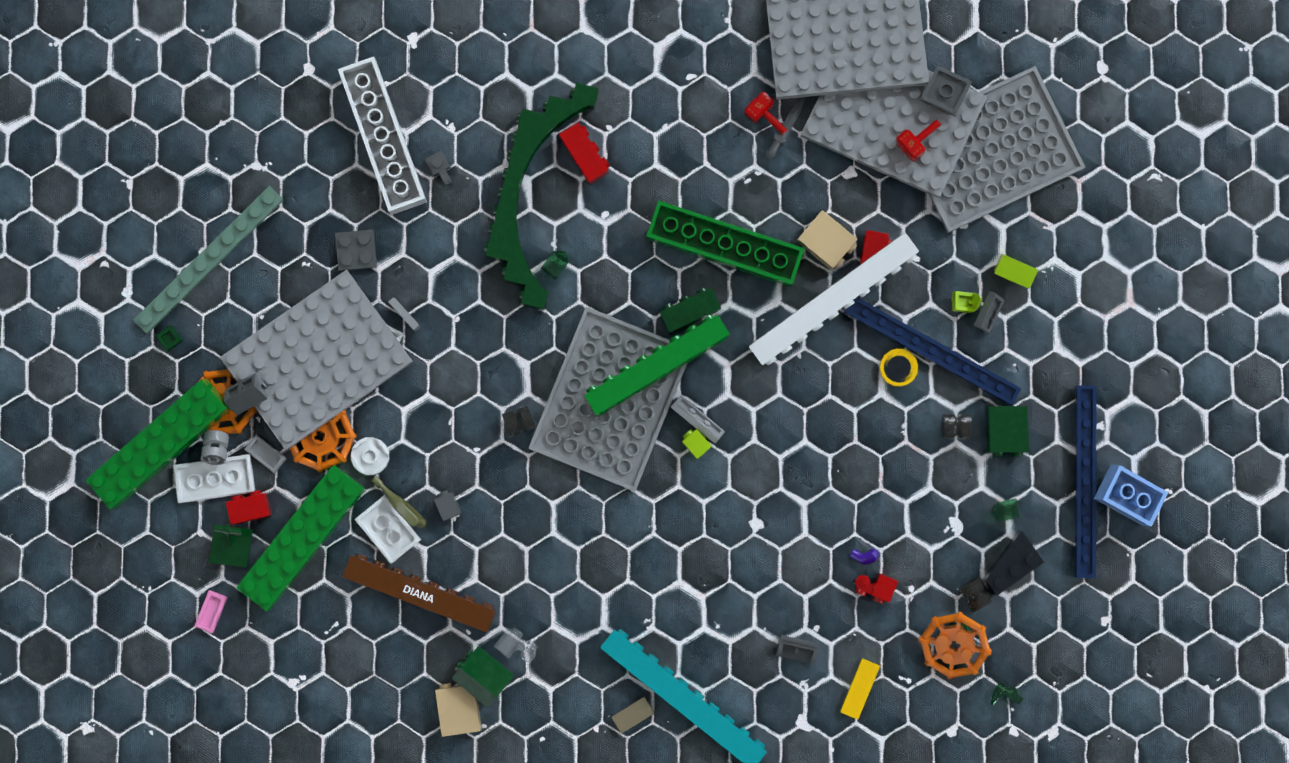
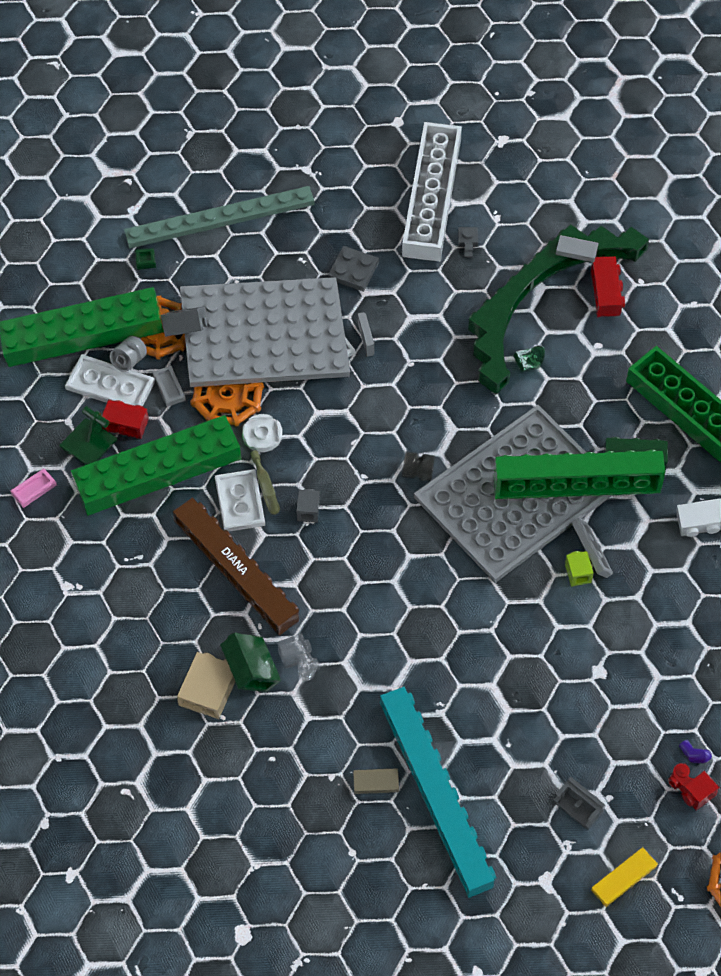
camera: 30 degrees right, 25 degrees down
(541, 133) = (577, 248): none -> light grey tile

